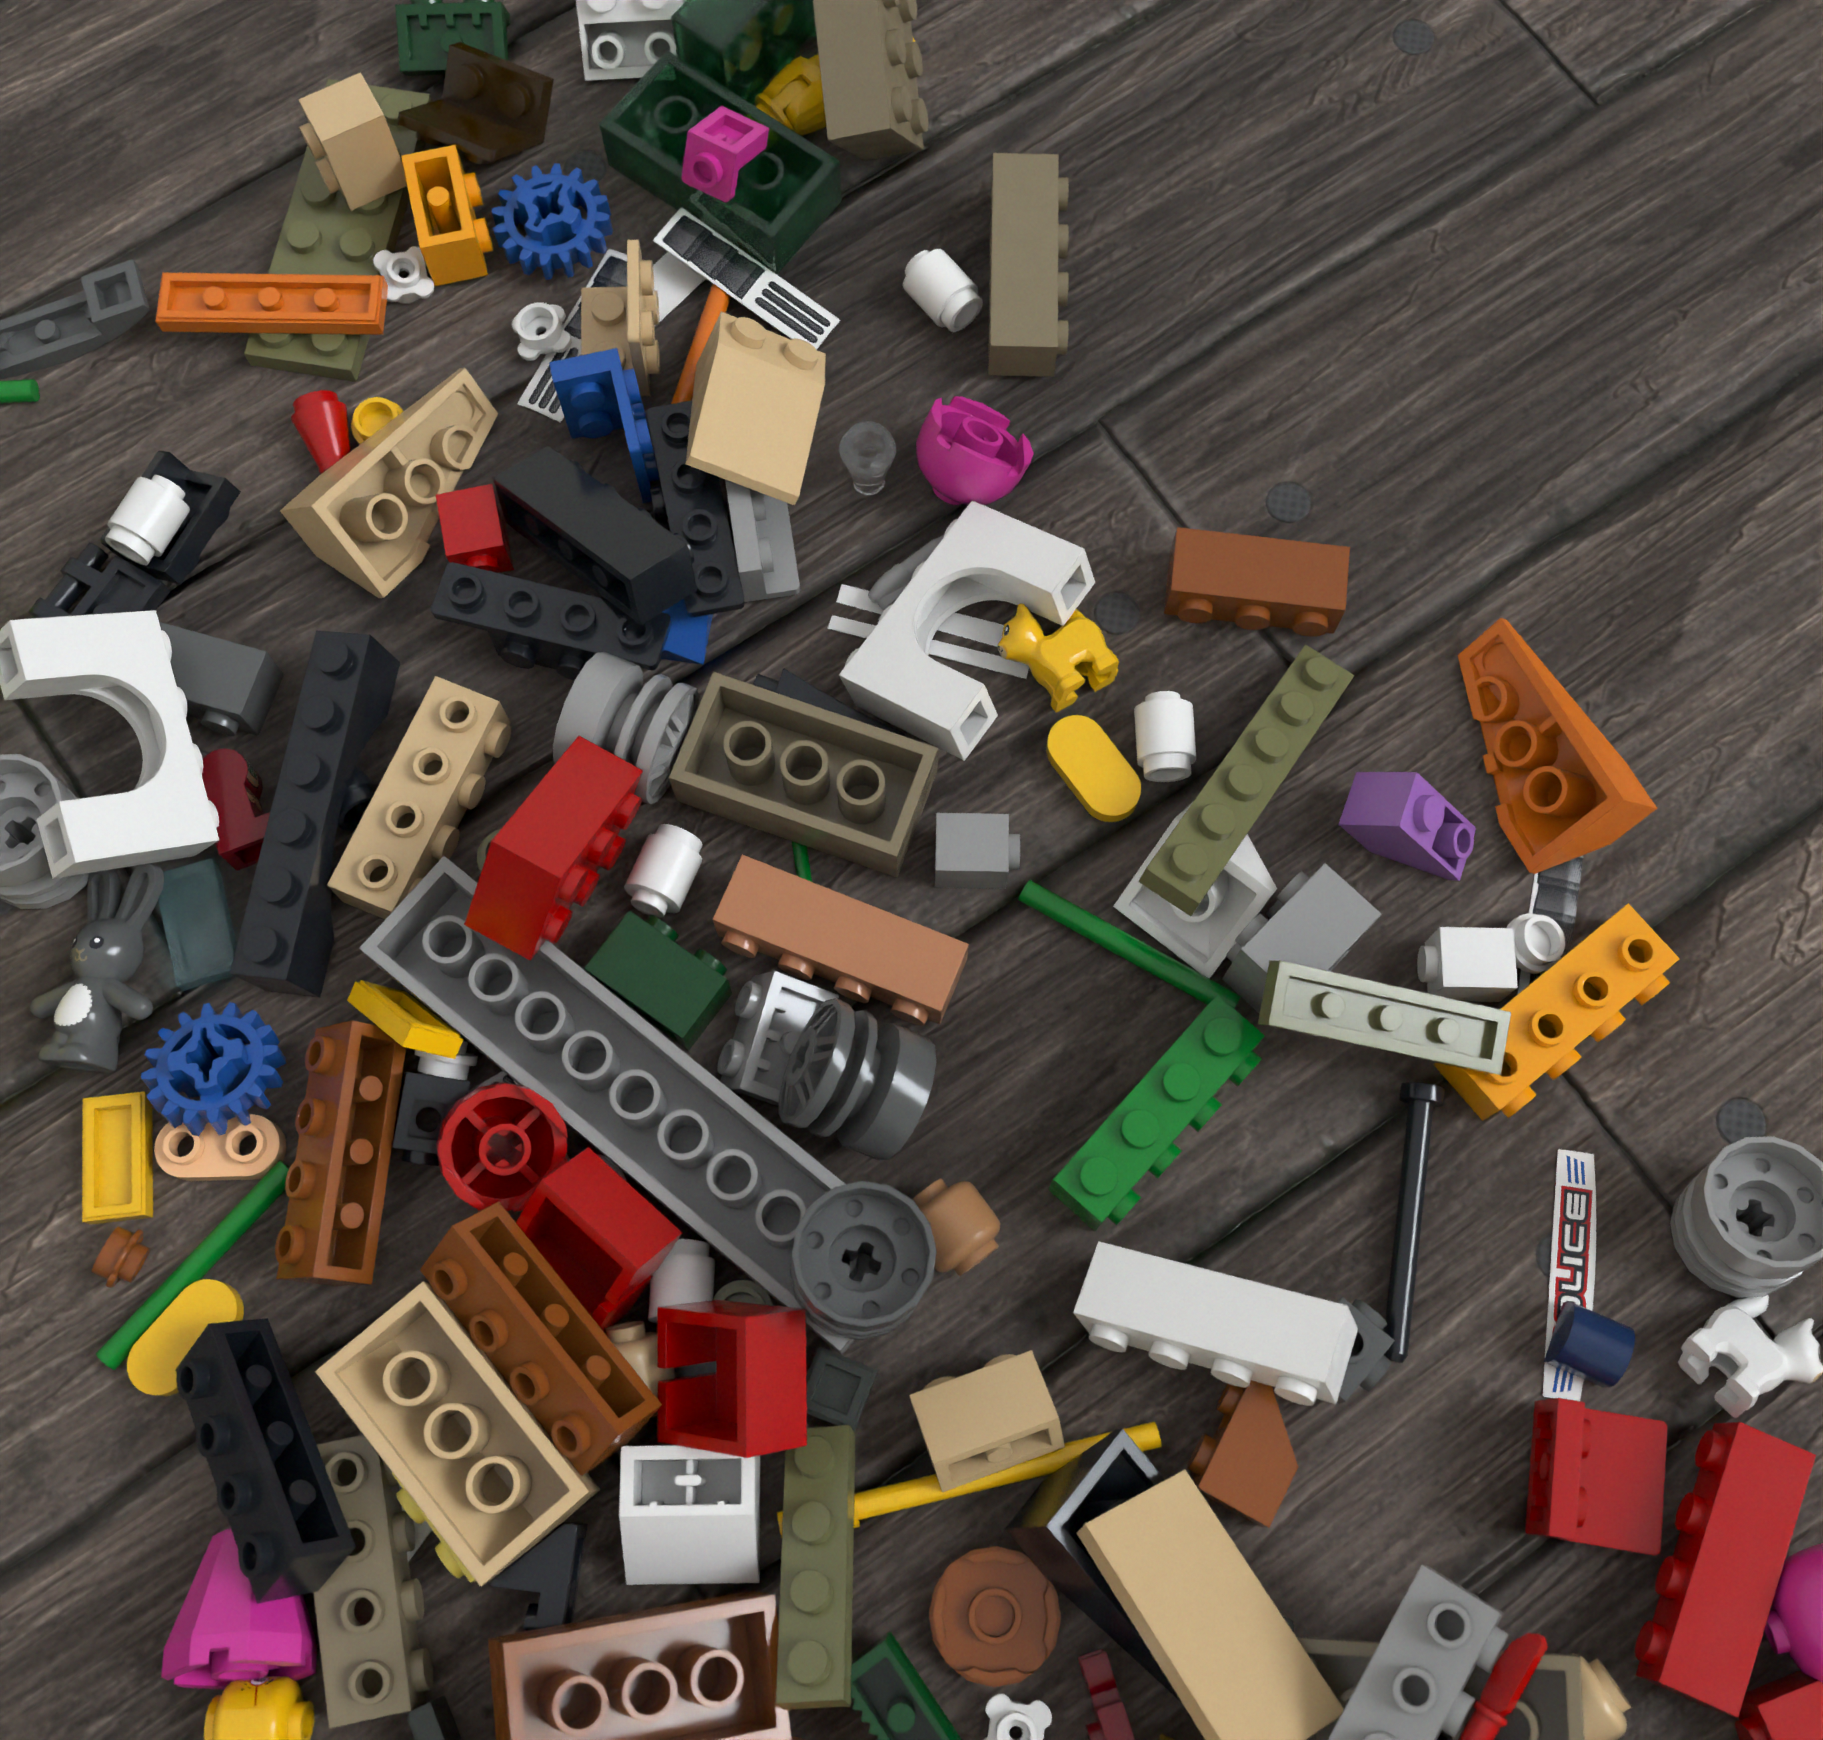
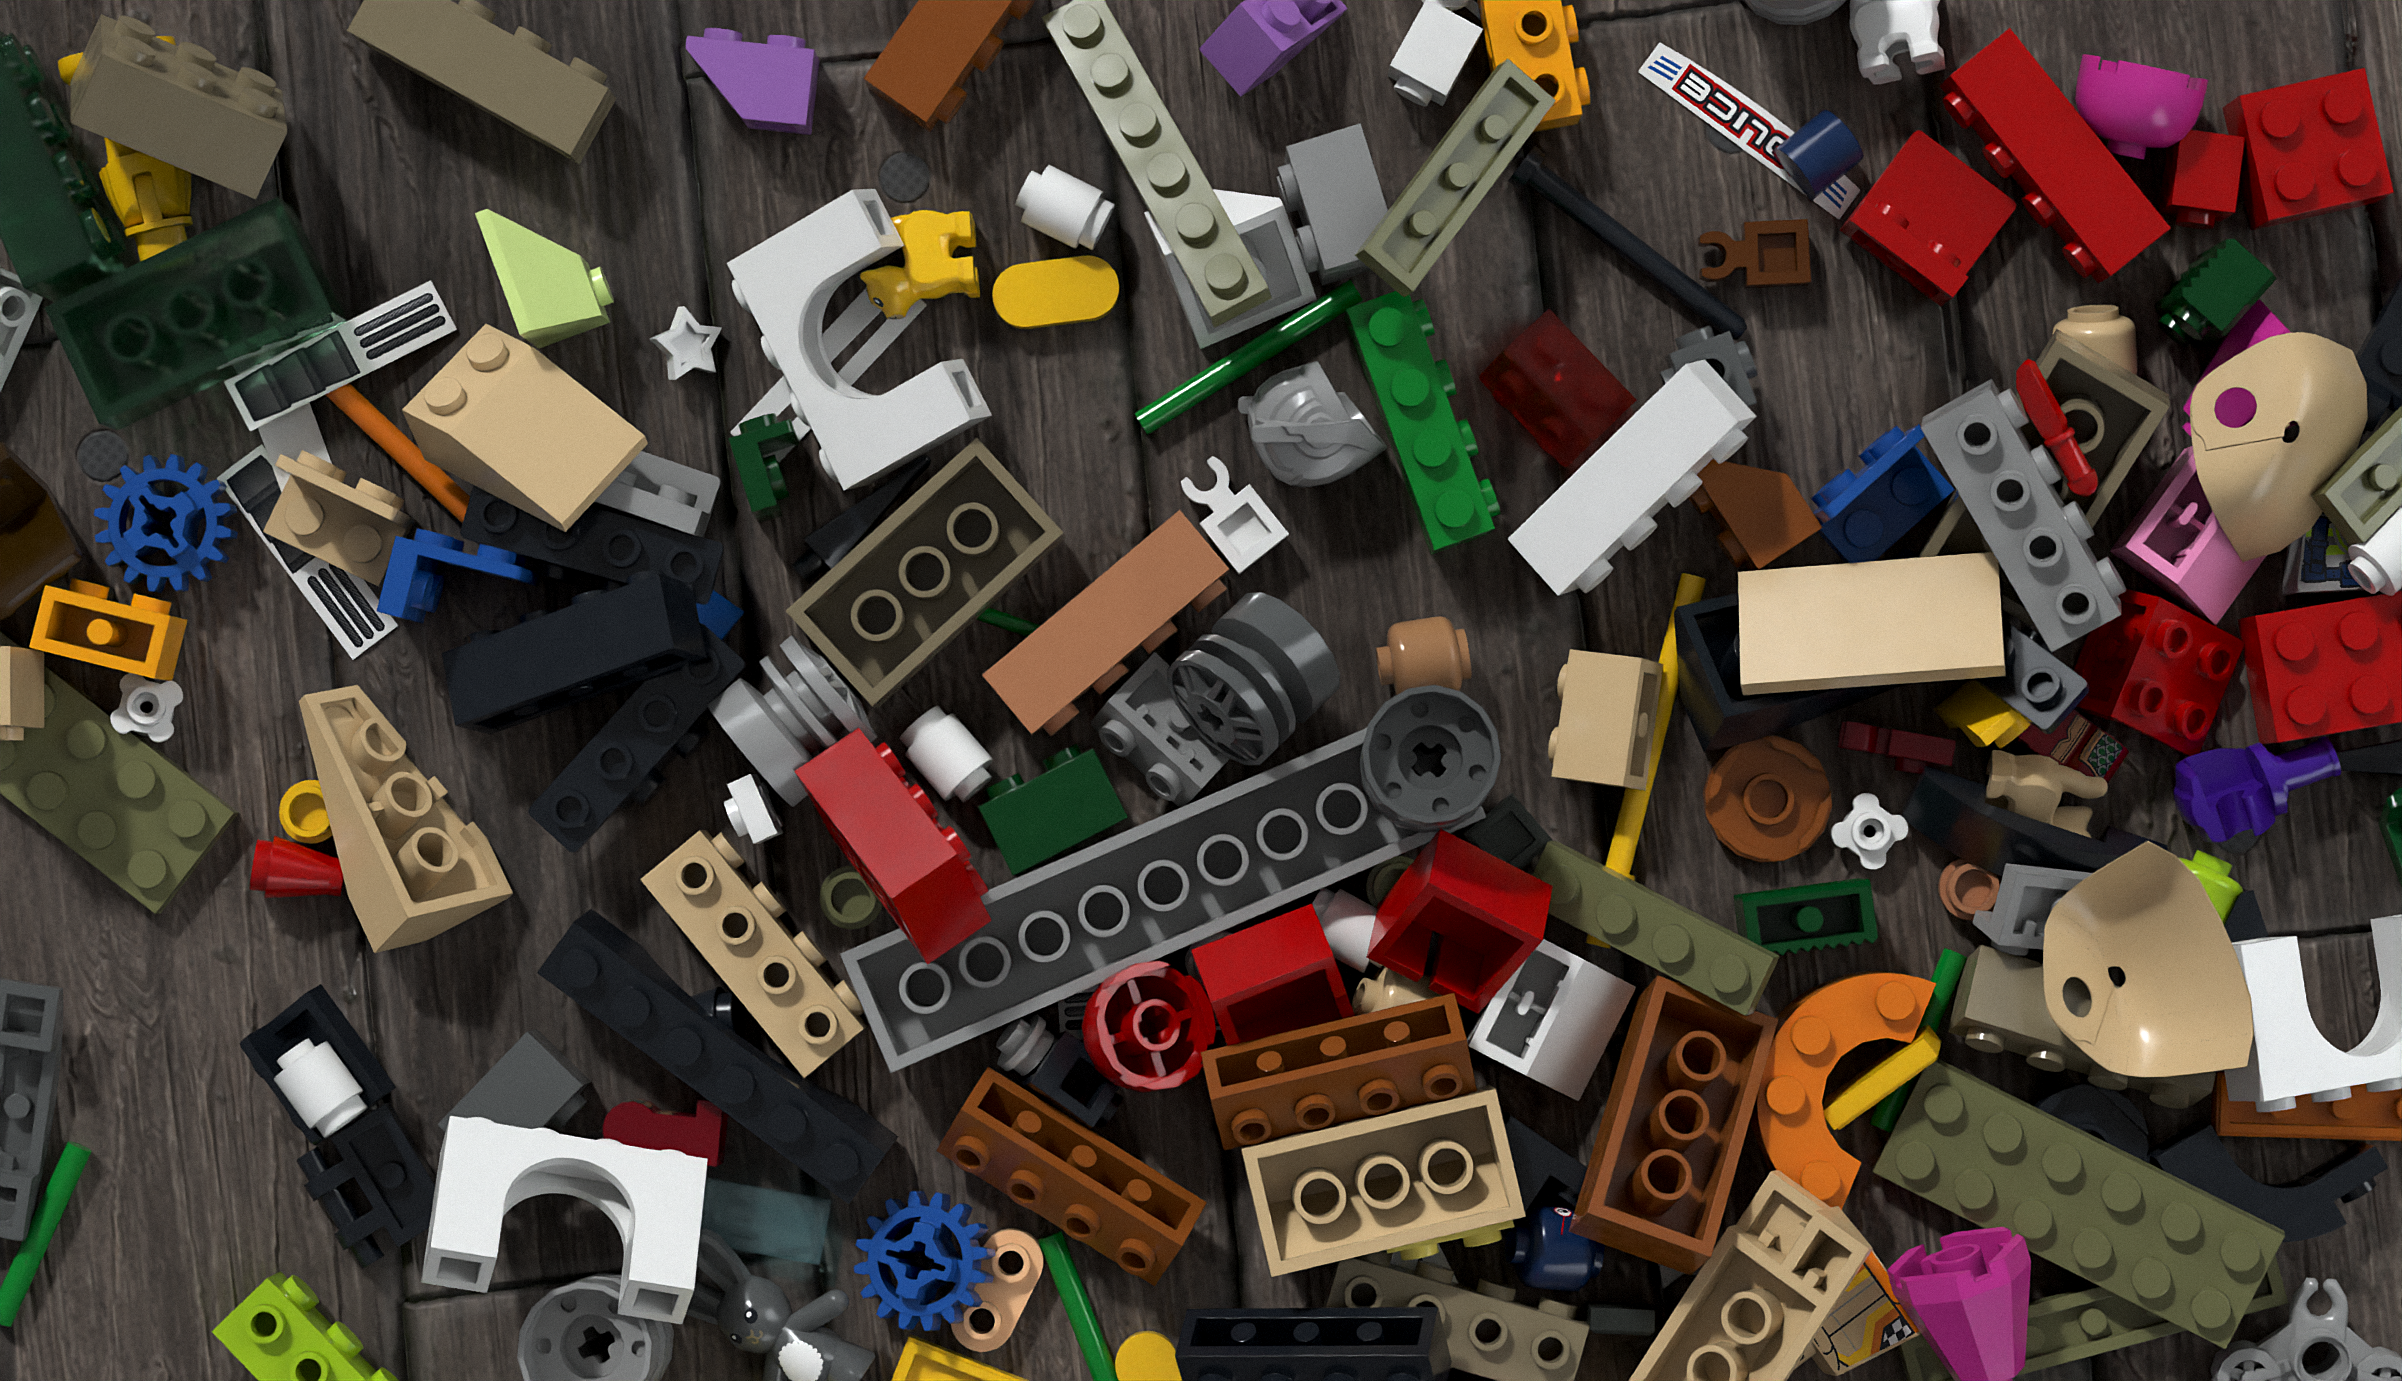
camera: 60 degrees left, 15 degrees up
(272, 303) = (121, 858): orange tile -> none
(405, 1019) = (976, 1062): yellow tile -> none
(462, 1631) = (1549, 1254): none -> dark blue head
(475, 529) = (493, 771): red brick -> none
(532, 733) = (752, 810): none -> white plate
(539, 318) = (275, 583): white plate -> none
(719, 149) = (213, 314): dark pink bracket -> none
(820, 596) = (761, 475): none -> dark green bracket
(867, 454) = (609, 327): clear cone -> none
(876, 371) = (545, 284): none -> yellowish green slope
(892, 514) = (687, 345): none -> white piece
(894, 581) = (759, 374): light grey piece -> none
(942, 289) = (462, 161): white brick -> none
(970, 453) = (671, 232): dark pink cylinder -> none
(974, 850) = (1082, 451): light grey brick -> none
(986, 1008) = (1239, 523): none -> white plate
(1097, 1022) = (1308, 429): none -> light grey helmet
(1128, 467) = (763, 83): none -> medium lavender slope
(1252, 1217) = (1556, 388): none -> clear red bracket
(1326, 1572) = (1883, 500): none -> blue bracket
(1477, 1345) = (1768, 254): none -> reddish brown plate

